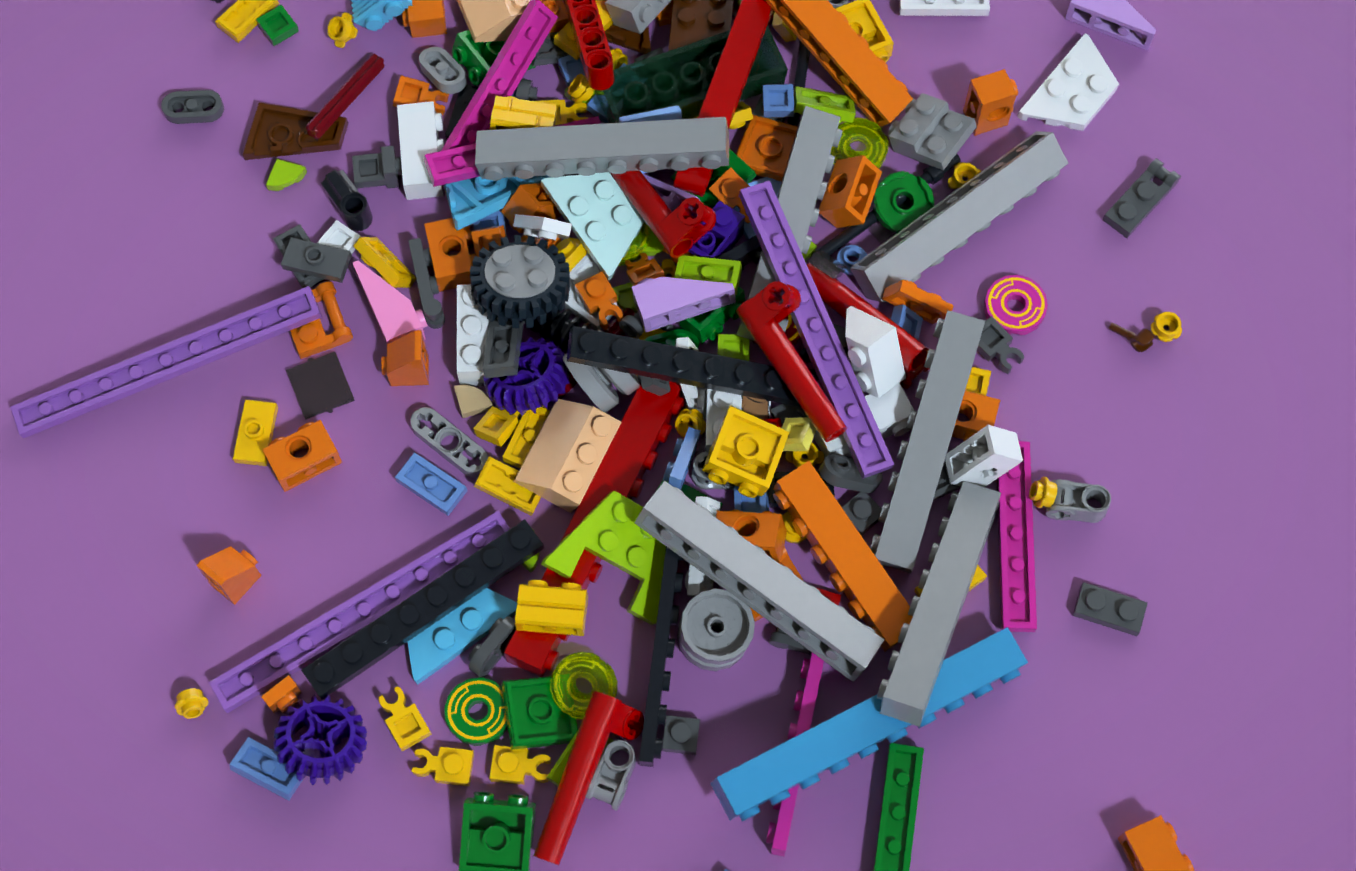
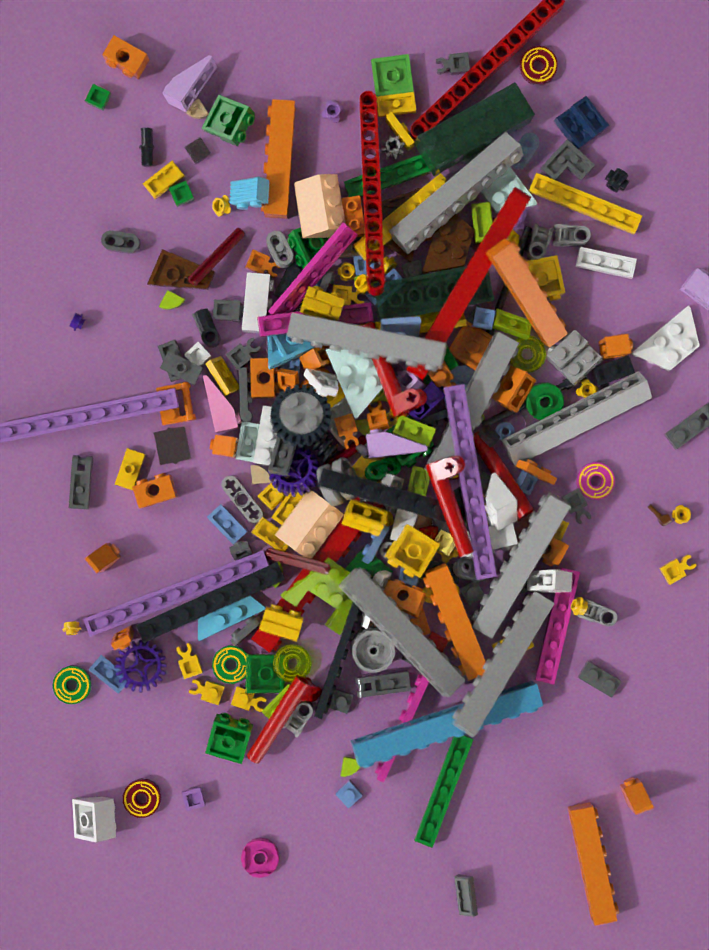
camera: 10 degrees right, 20 degrees up
(138, 230) = (77, 321): none -> dark purple plate
(175, 468) = (80, 482): none -> dark grey plate
(190, 789) = (61, 688): none -> green tile
(410, 226) = (241, 355): none -> dark grey plate
(442, 352) = (247, 441): none -> light aqua plate
(460, 517) = (240, 550): none -> dark grey plate
(549, 77) = (346, 266): none -> yellow plate
(560, 507) = (298, 561): none -> dark red axle
(656, 412) = (364, 517): none -> yellow brick
(720, 843) = (349, 766): none -> lime tile
(747, 689) = (383, 684): none -> dark grey plate
(996, 141) = (613, 370): none -> black plate
(1183, 411) = (674, 569): none -> yellow plate
(1228, 782) = (636, 795): none -> orange slope

